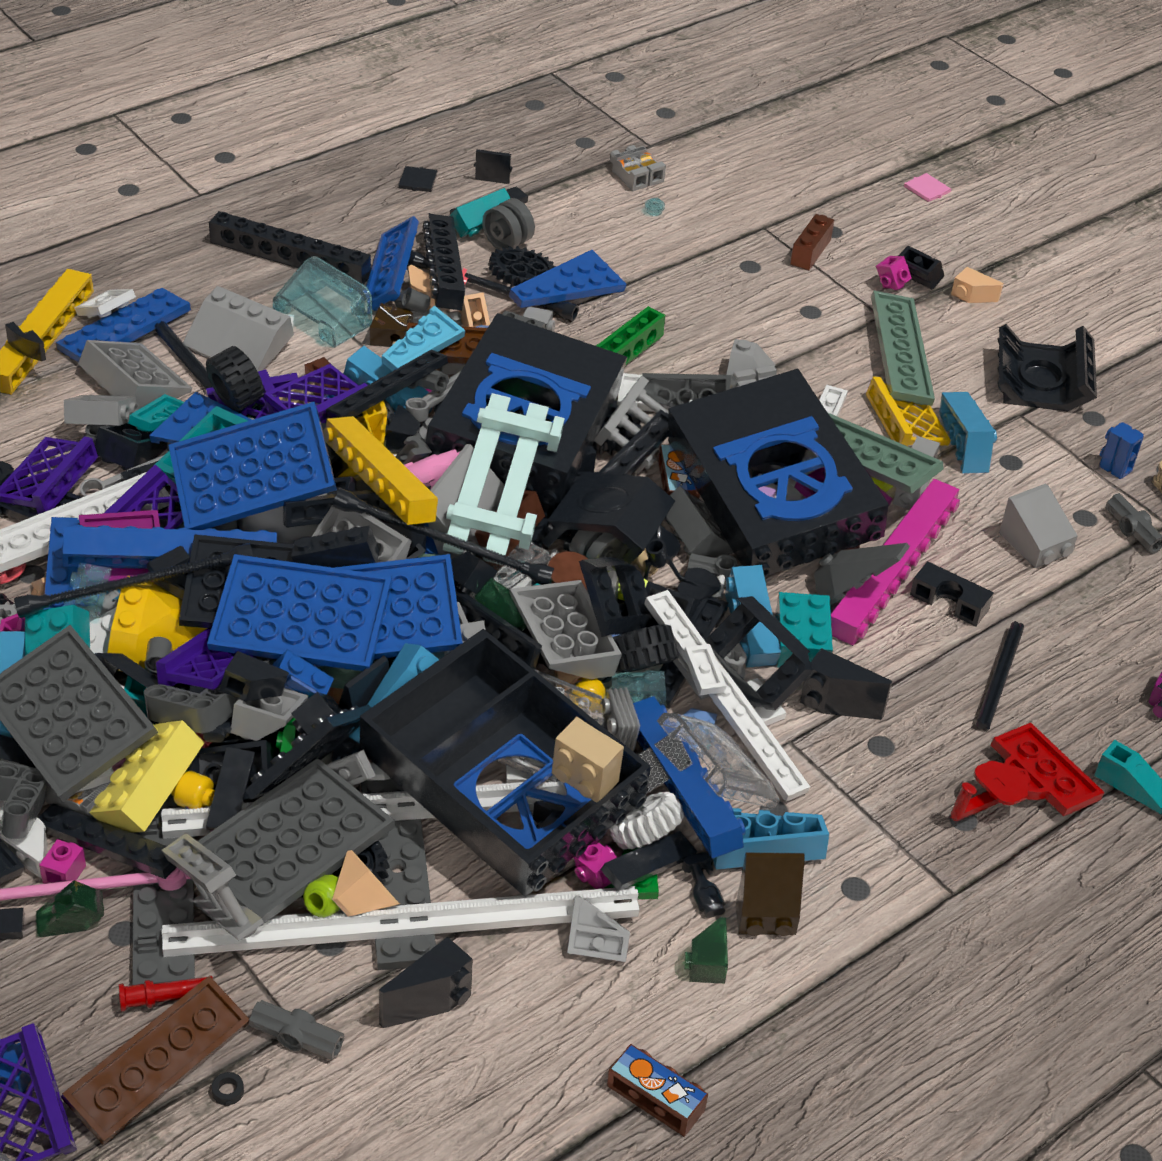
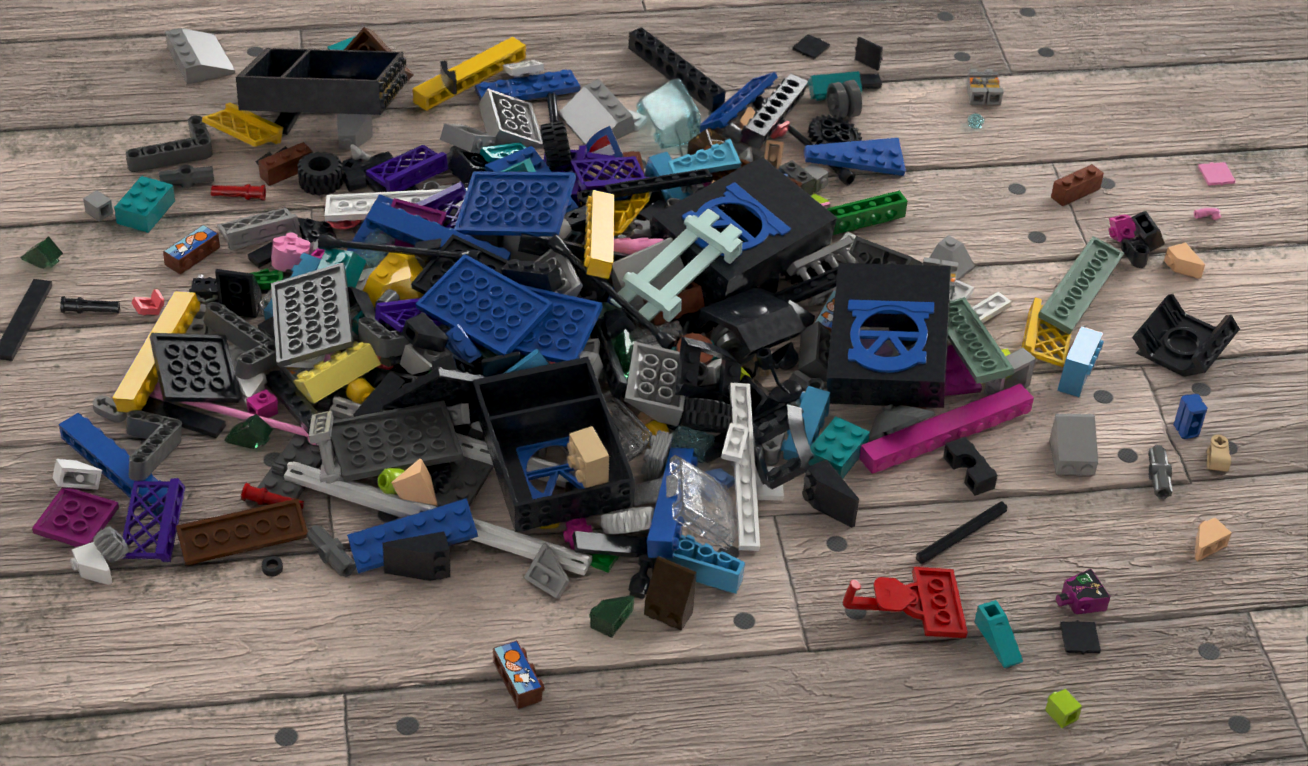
camera: 30 degrees right, 0 degrees up
(275, 360) = (604, 143): none -> shield
(352, 994) = (451, 518): none -> blue plate
(925, 293) = (1136, 251): none -> black piece
(949, 231) = (1214, 212): none -> bright pink arm

